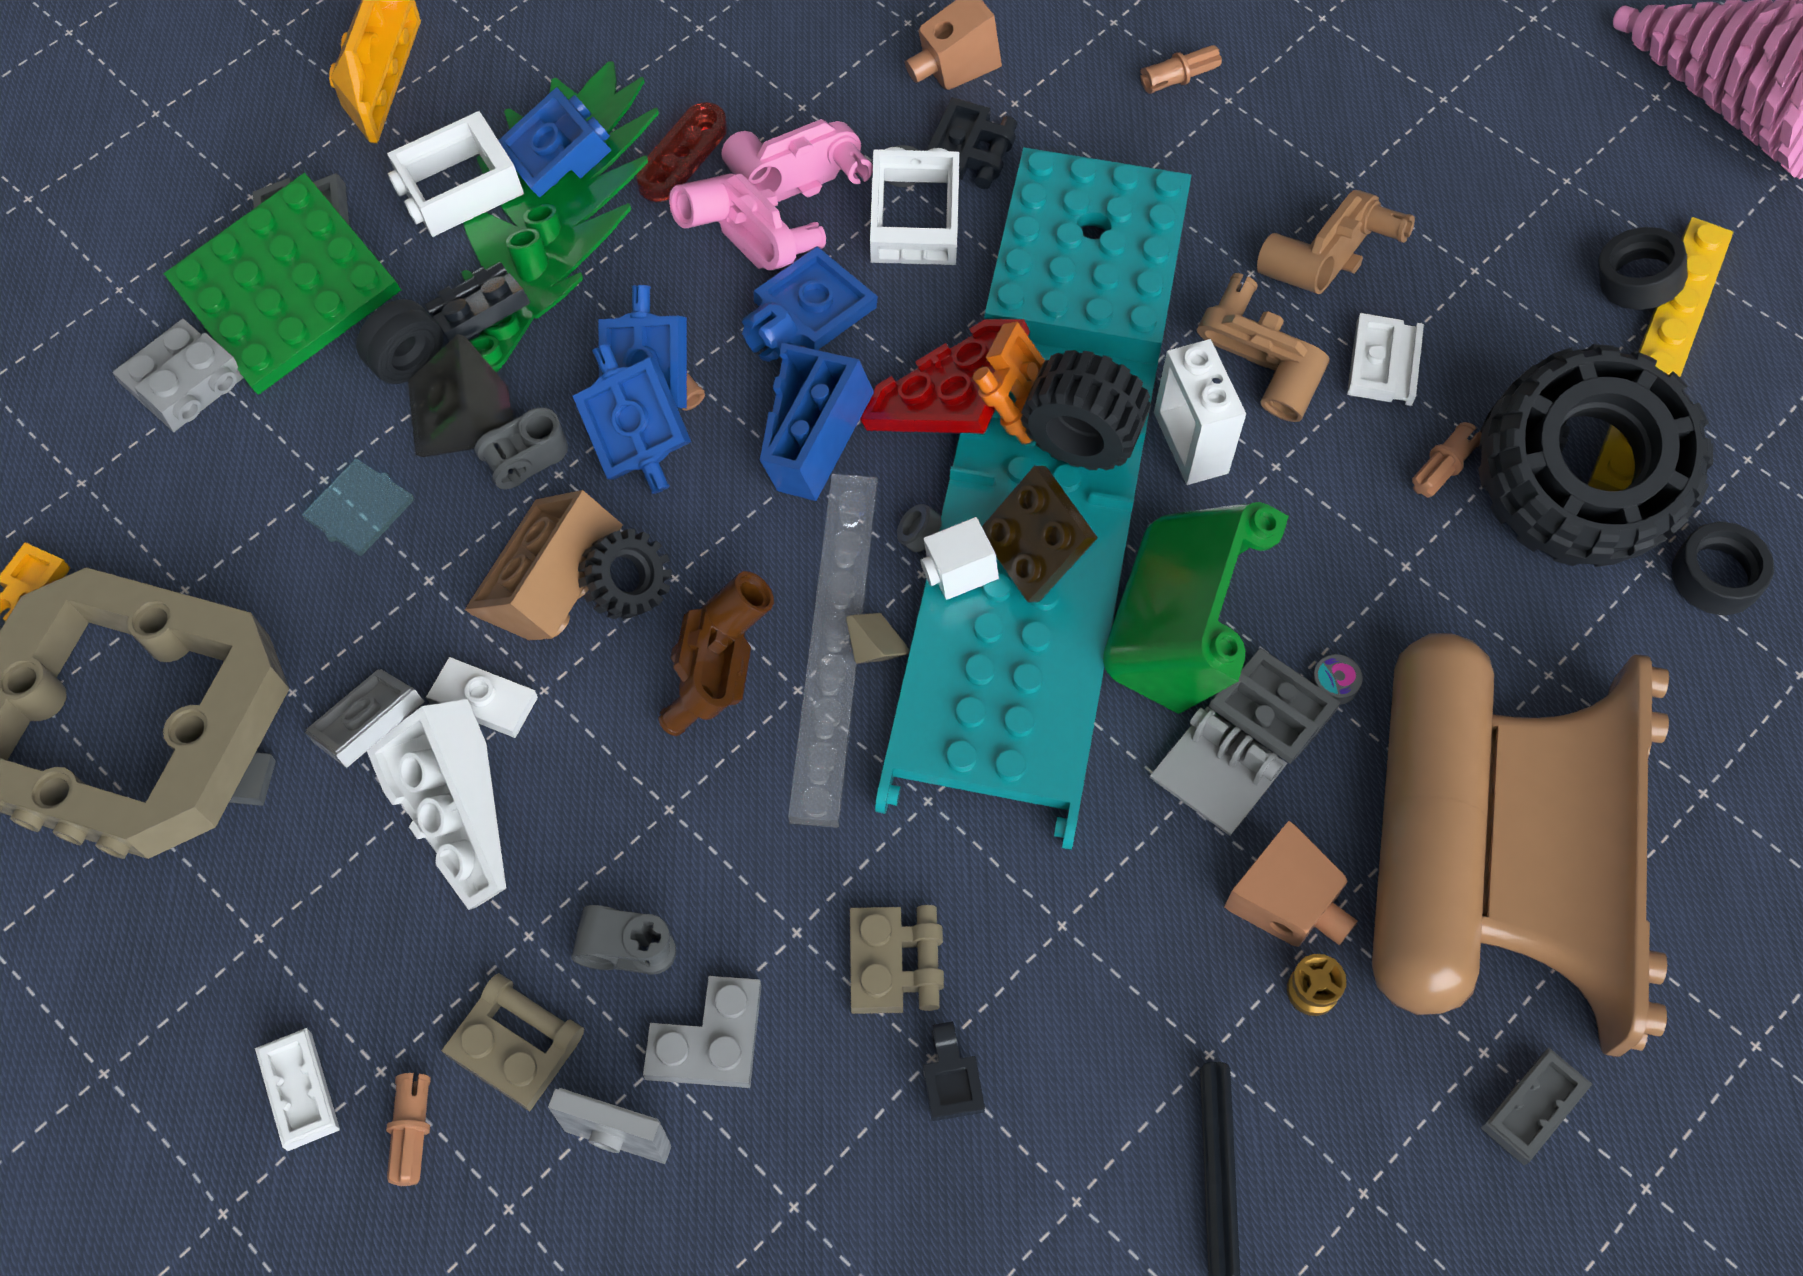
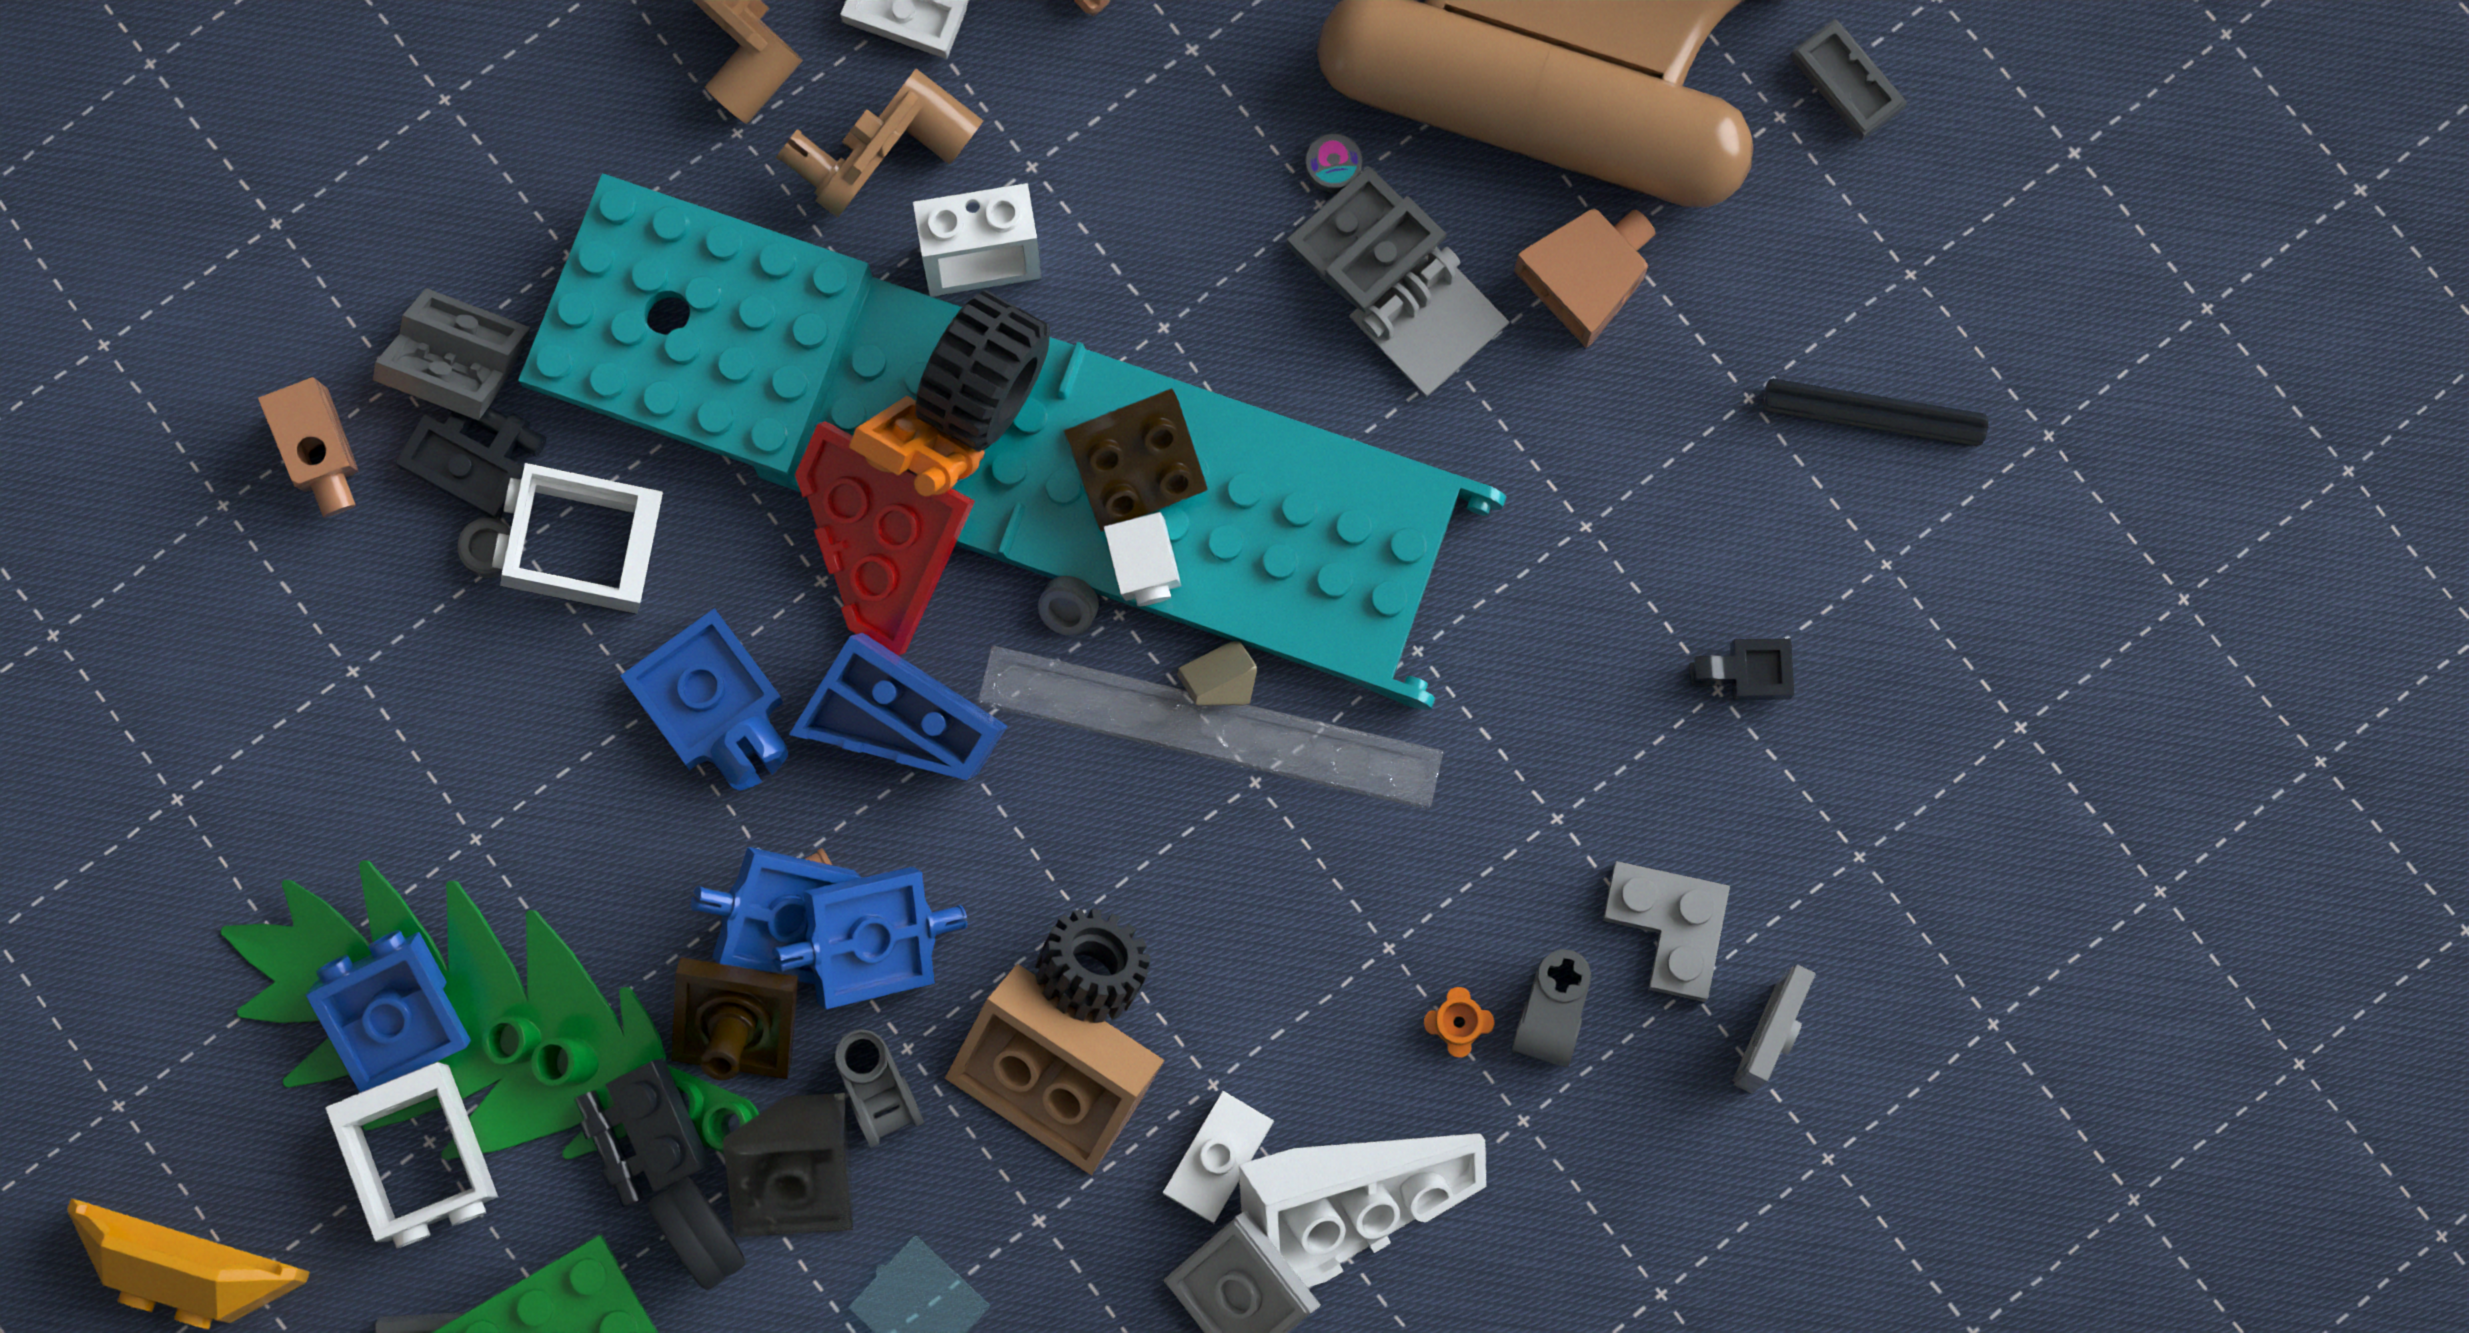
camera: 85 degrees left, 15 degrees up
(408, 1129) = (1737, 1259): nougat axle -> none
(504, 1057) = (1664, 1154): dark tan plate -> none
(560, 341) = (733, 1019): none -> dark brown plate
(607, 854) = (1459, 1005): none -> orange plate
(684, 139) = (401, 822): clear red plate -> none
(714, 652) = (1215, 866): reddish brown piece -> none
(745, 218) = (568, 759): bright pink piece -> none
(798, 159) = (490, 726): bright pink piece -> none
(877, 959) = (1601, 730): dark tan plate -> none
(1037, 115) = (451, 354): none -> dark grey slope
(1167, 622) = (1232, 308): green windscreen -> none
(1180, 68) = (389, 150): nougat axle -> none
(1323, 975) = (1701, 258): pearl gold wheel -> none

